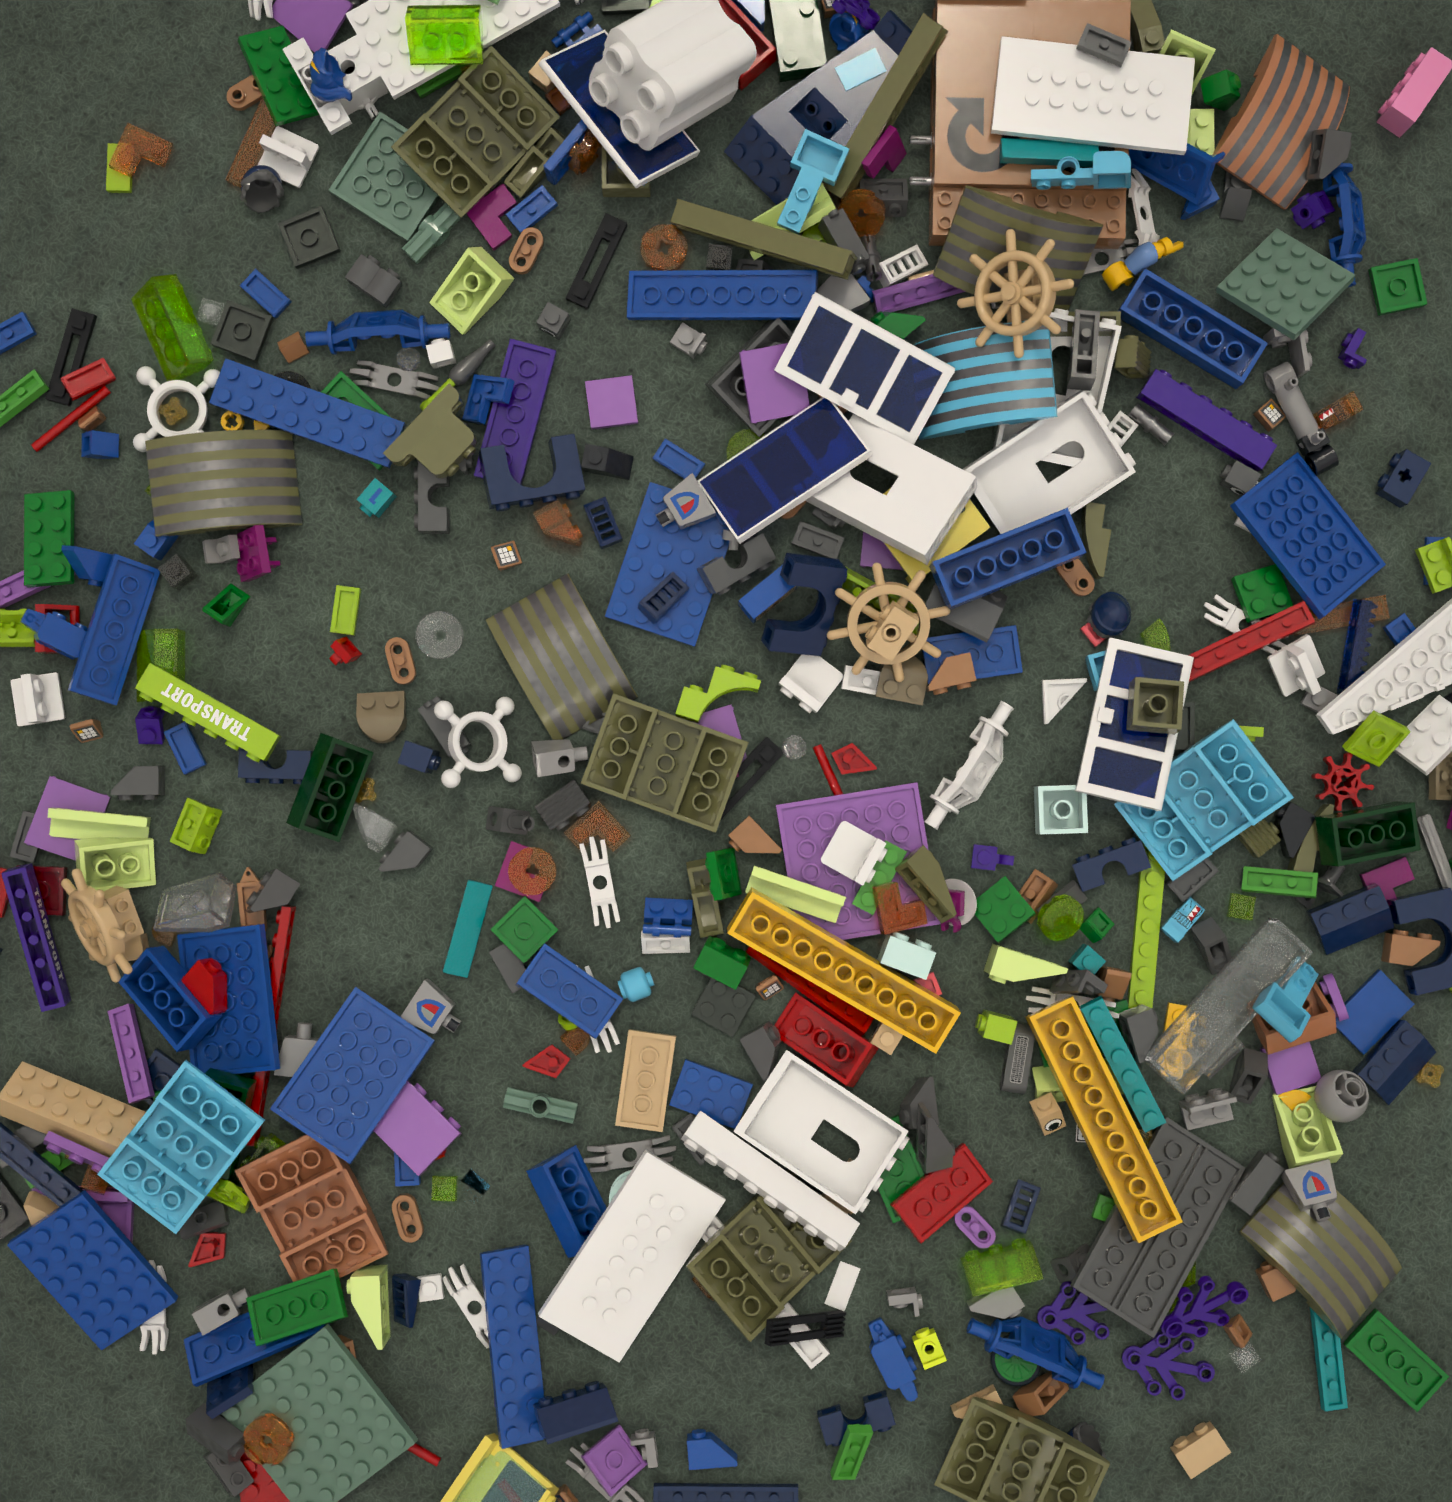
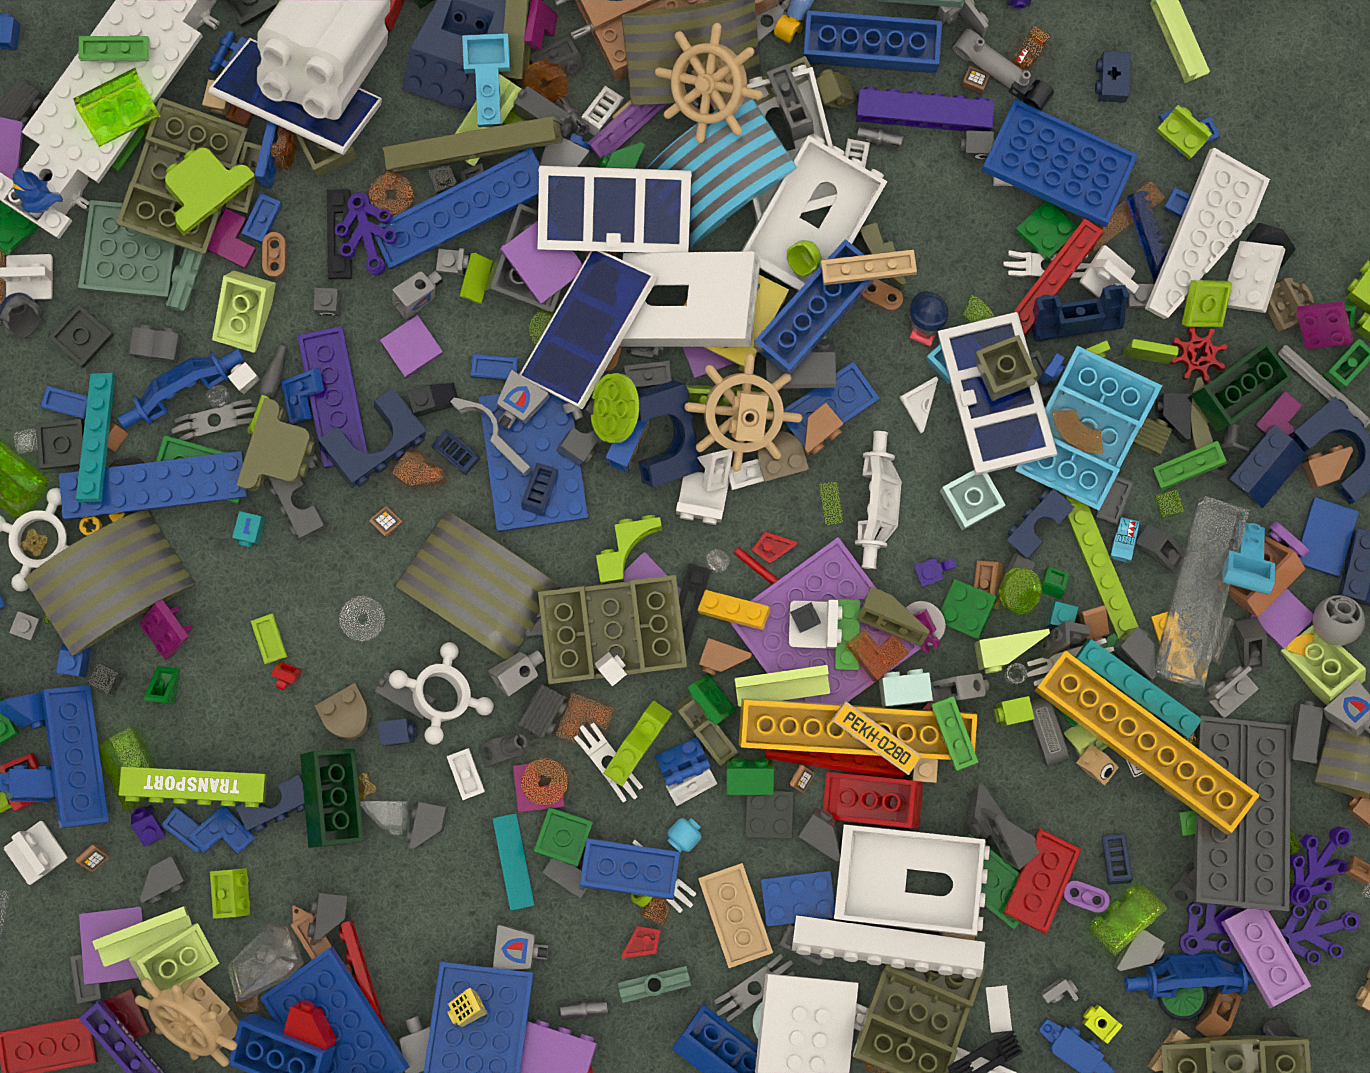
camera: 30 degrees left, 5 degrees down
(128, 485) = (25, 626): none -> light grey plate
(217, 760) = (221, 825): none -> blue tile
(221, 550) = (135, 640): light grey bracket -> none
(275, 341) = (95, 437): none -> teal plate
(357, 1043) = (466, 1008): none -> light yellow slope
(400, 661) = (339, 658): medium nougat plate -> none
(464, 826) = (465, 774): none -> white plate
(465, 1095) = (584, 1009): none -> flat silver pin
(490, 152) = (203, 186): none -> lime brick
(622, 270) = (365, 229): none -> dark purple plant
(631, 356) = (415, 293): none -> light grey torso
(631, 484) = (465, 406): none -> light grey piece
(635, 879) = (637, 743): none -> lime arch
(645, 798) = (611, 668): none -> white plate
(703, 368) = (476, 278): none -> lime tile
(770, 558) = (615, 408): none -> lime tile
(786, 801) = (734, 610): none -> yellow plate
(836, 663) = (716, 469): none -> white slope
(848, 843) = (805, 617): none -> black plate
(856, 988) = (876, 738): none -> tile
(927, 746) = (831, 503): none -> clear neon green sticker
(930, 1020) = (954, 733): none -> bright green plate
(965, 981) = (967, 687): none -> light grey torso
(1020, 504) = (804, 257): none -> lime hair
(1022, 995) = (1022, 674): none -> clear bush
(1075, 546) = (868, 267): none -> tan plate
(1111, 1366) = (1266, 955): none -> lavender plate
(1190, 800) = (1077, 433): none -> clear orange tile
(1198, 729) = (1052, 370): none -> blue plate
(1231, 685) = (1079, 317): none -> dark blue bracket
(1299, 757) = (1150, 351): none -> lime tile

